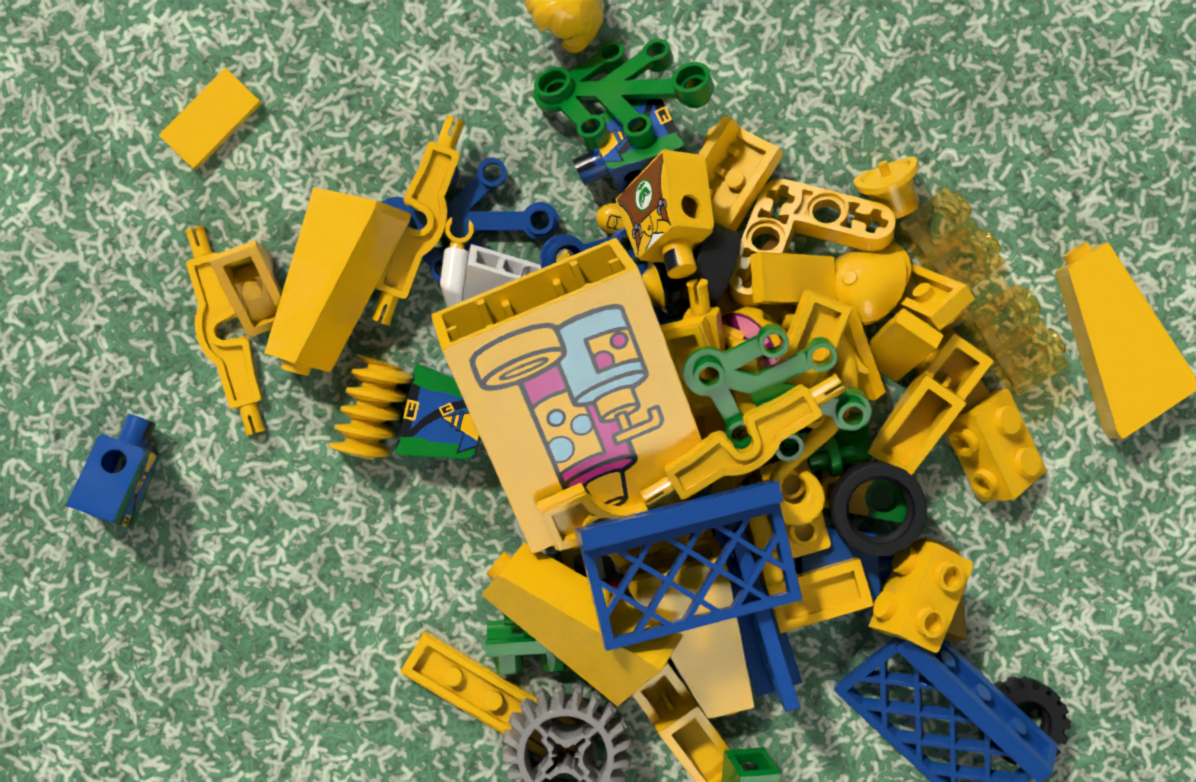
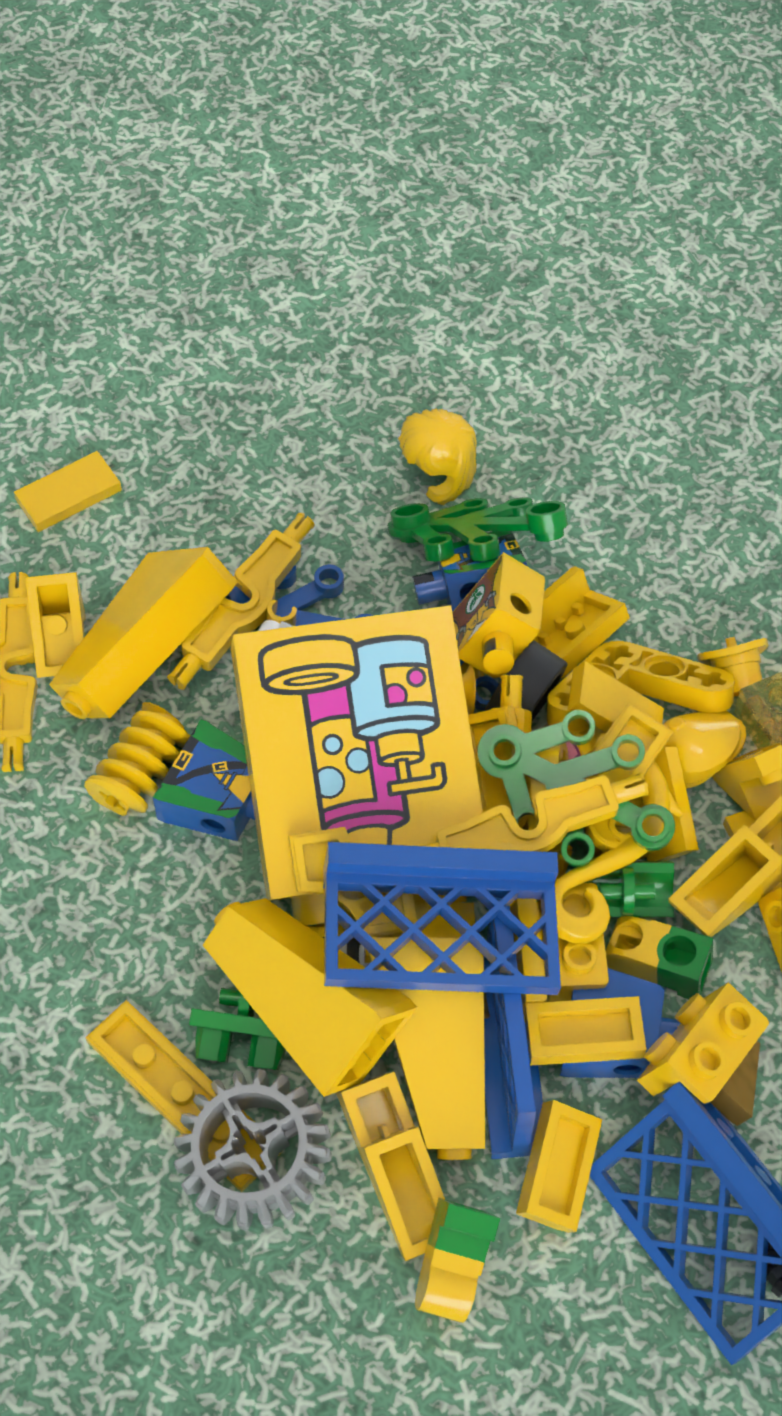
camera: 10 degrees right, 30 degrees down
(817, 687) = (559, 1166): none -> yellow tile
(903, 344) = (723, 799): yellow tile -> none
(915, 508) = (675, 906): black tyre -> none

